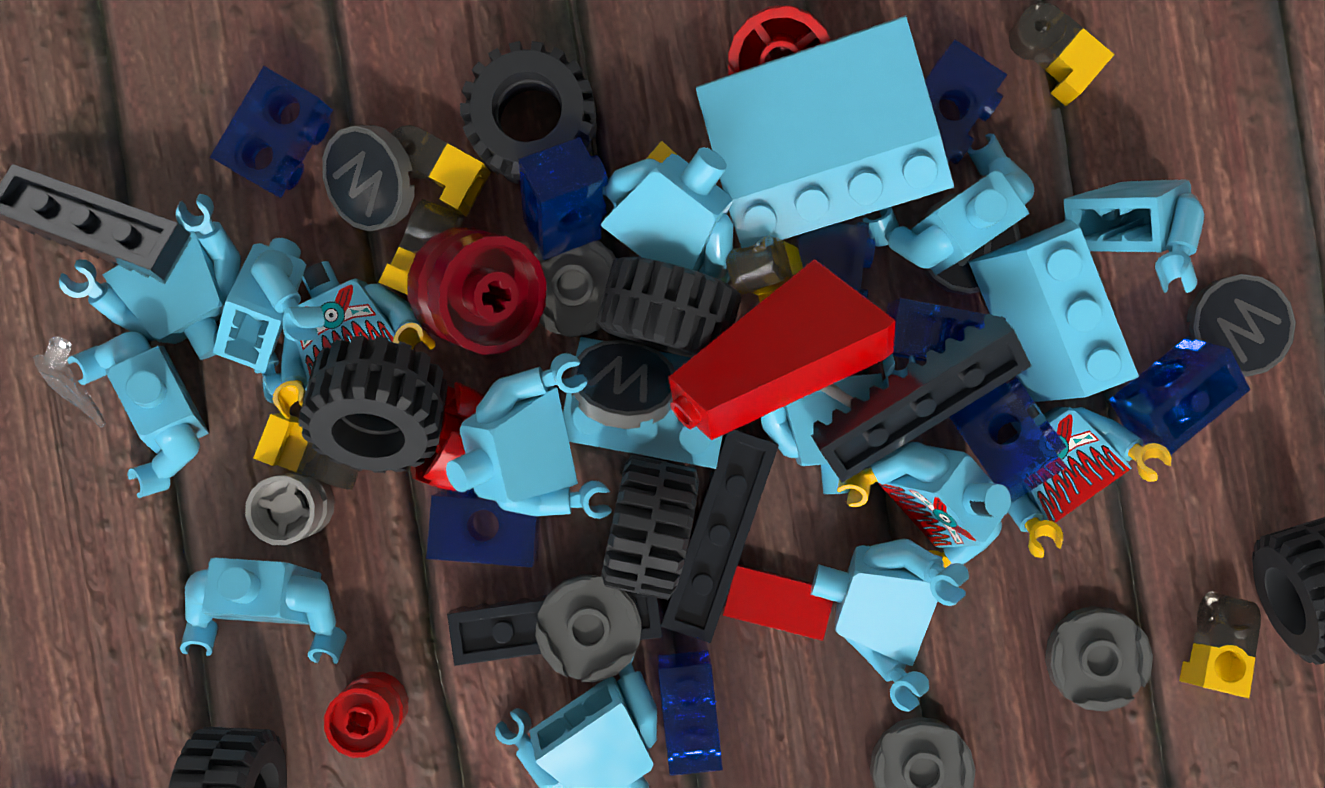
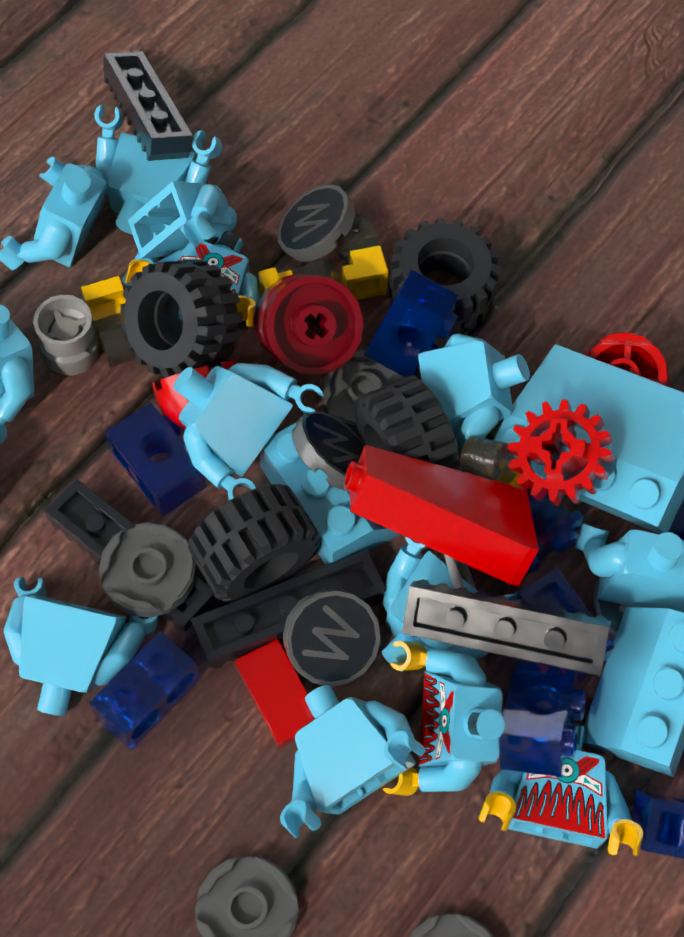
camera: 45 degrees right, 25 degrees down
(62, 379) = (33, 165): clear bar -> none
(259, 126) = (291, 159): clear blue brick -> none
(778, 525) = (331, 637): none -> black tile
(842, 193) = (560, 431): none -> red gear

